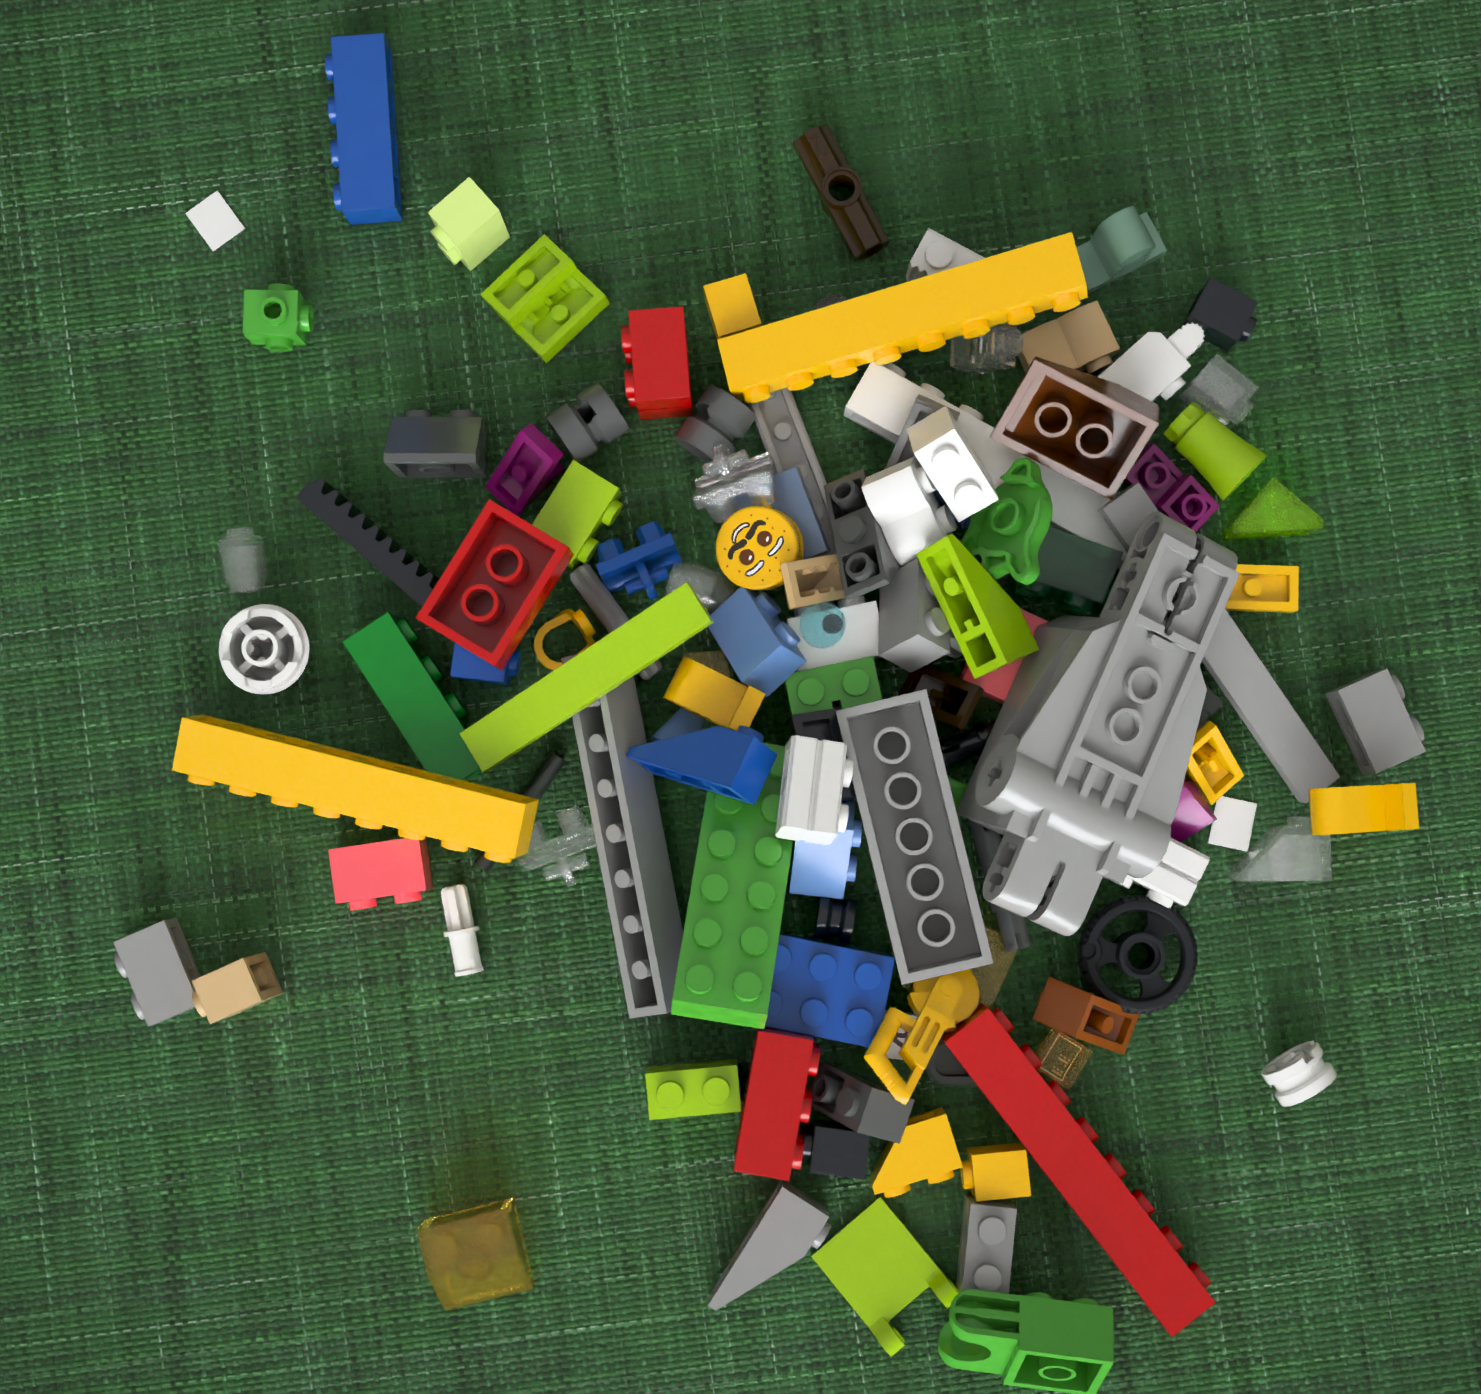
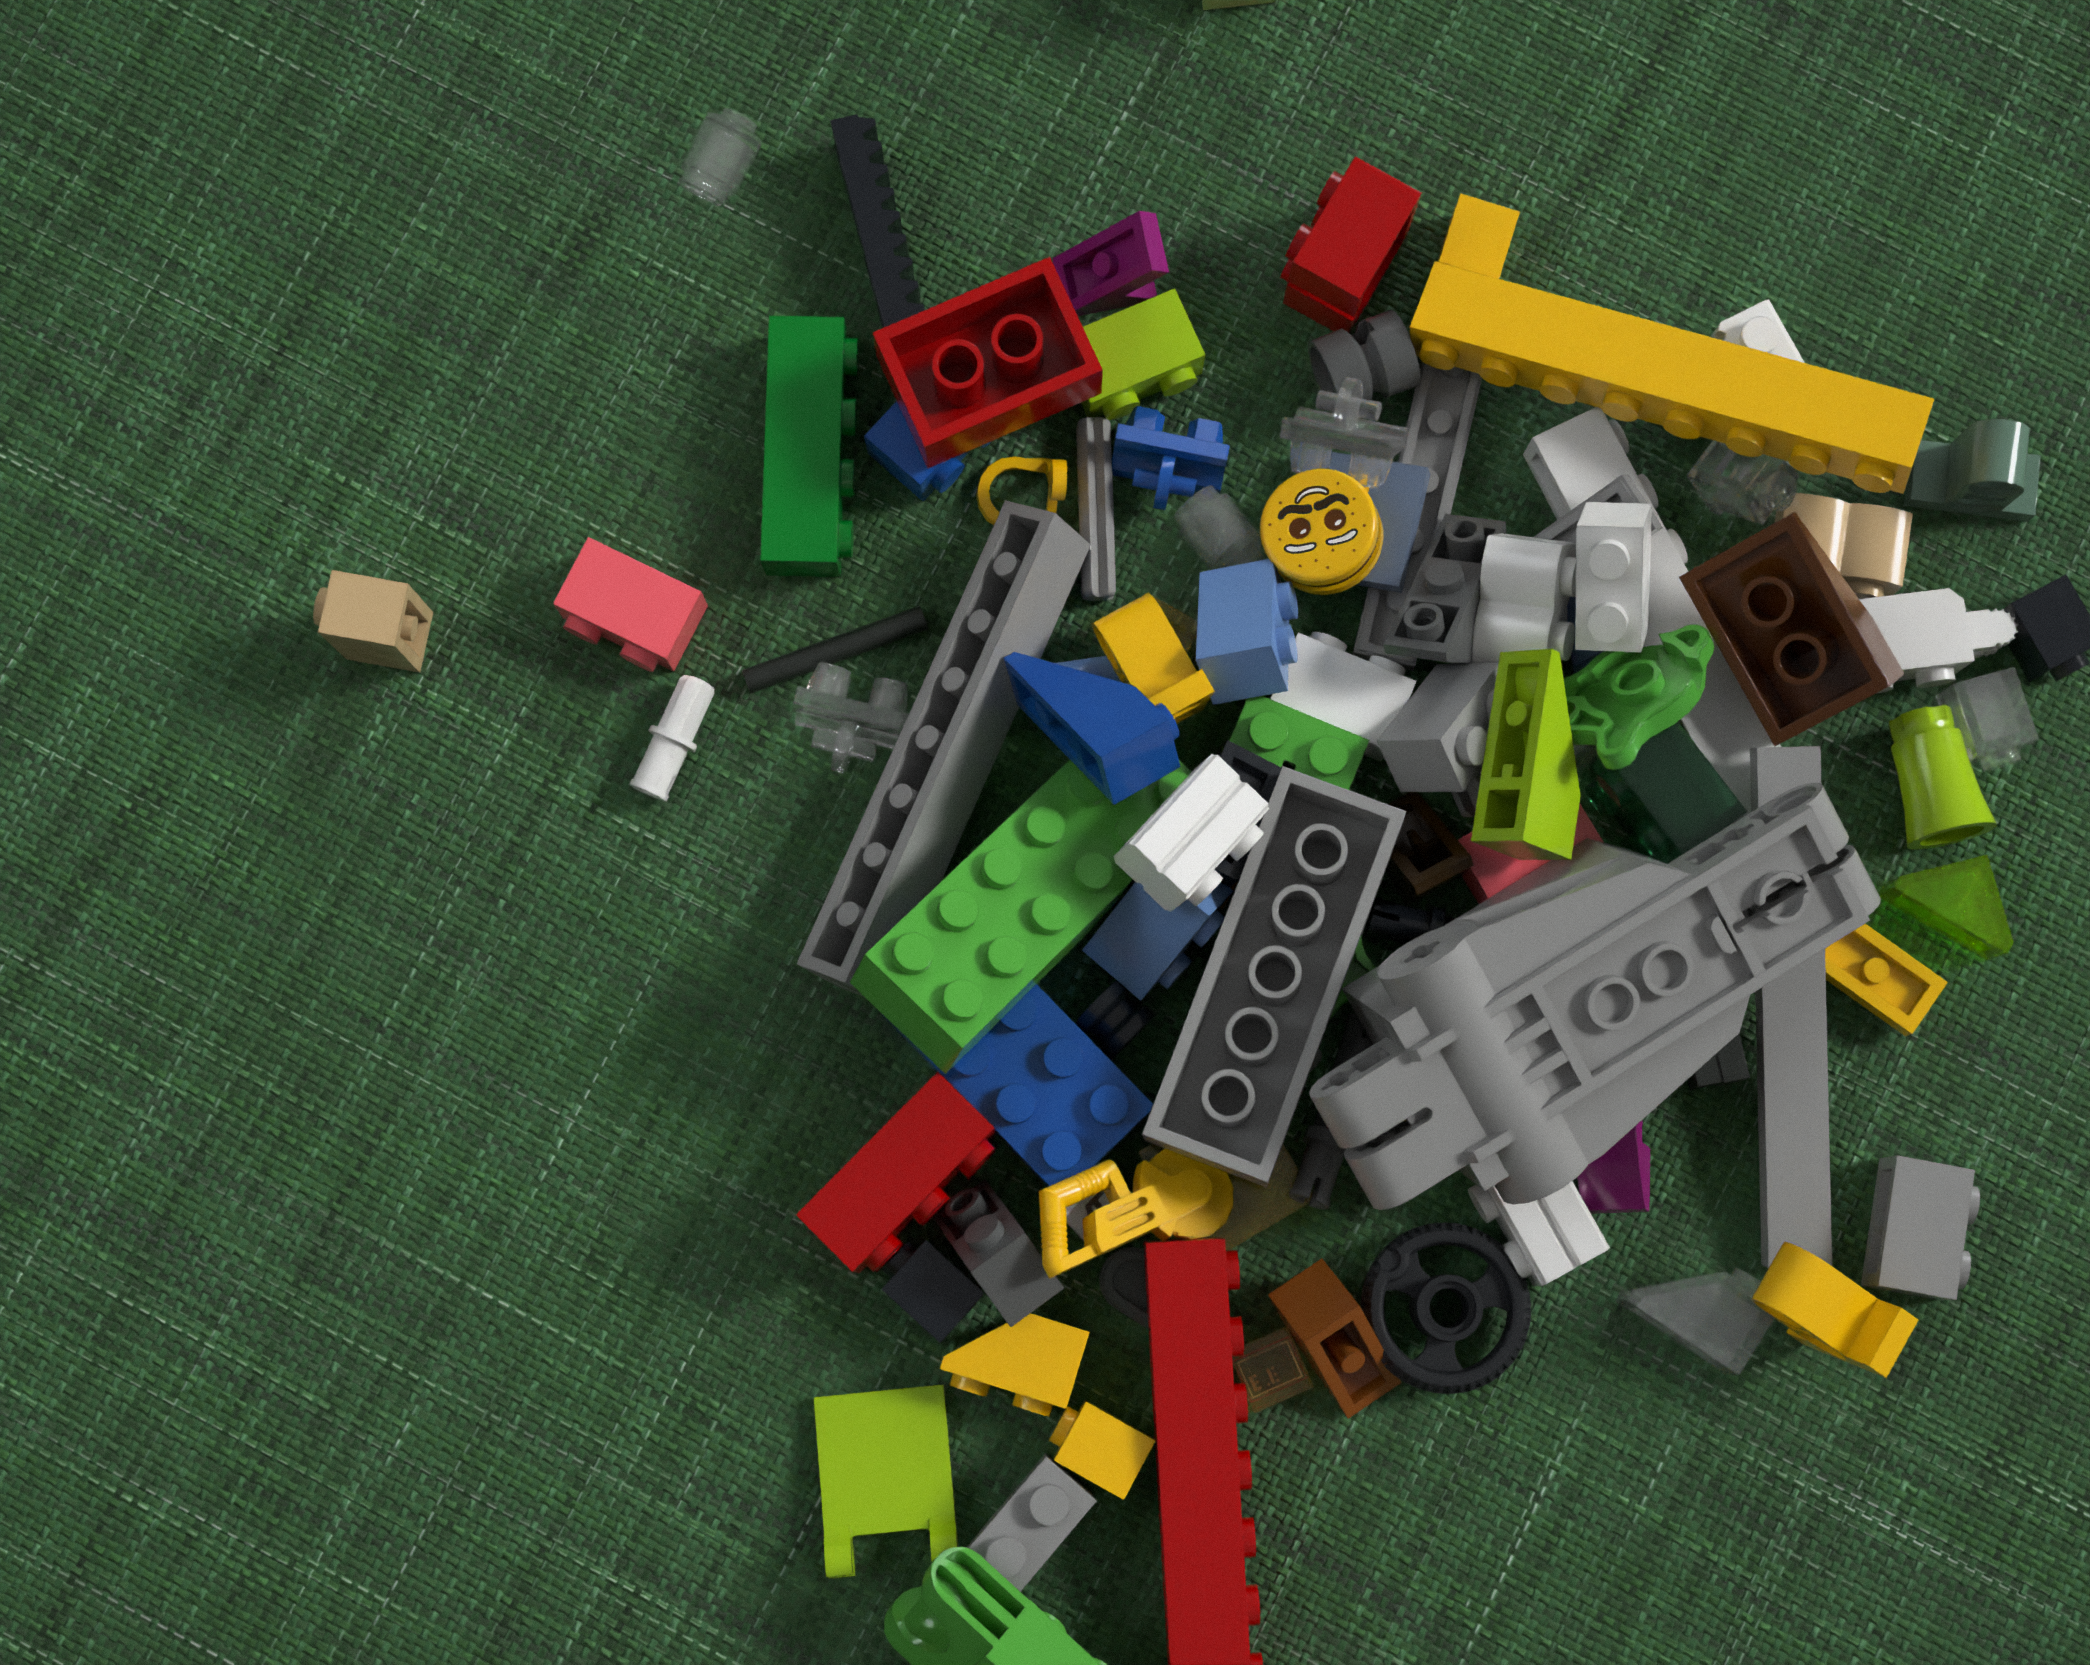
camera: 30 degrees right, 5 degrees down
(158, 970) = (300, 541): light grey brick -> none
(263, 649) = (674, 264): white cone -> none
(355, 786) = (671, 487): yellow brick -> none
(438, 445) = (1029, 174): dark grey slope -> none
(475, 1254) = (426, 1122): clear yellow slope -> none
(545, 298) = (1268, 94): lime slope -> none
(587, 677) = (1021, 536): lime tile -> none
(591, 406) = (1220, 261): dark grey wheel -> none
(693, 1089) = (812, 1100): lime brick -> none
(776, 1240) = (789, 1345): light grey slope -> none
(812, 581) = (1355, 609): tan slope -> none
(822, 625) = (1334, 665): clear light blue tile -> none
(829, 169) = (1695, 165): dark brown piece -> none
(1170, 490) = (1855, 789): magenta slope -> none
(1212, 763) = (1684, 1140): yellow slope -> none
(1233, 823) = (1664, 1235): white sticker -> none
(1299, 1073) = (1544, 1581): white wheel -> none

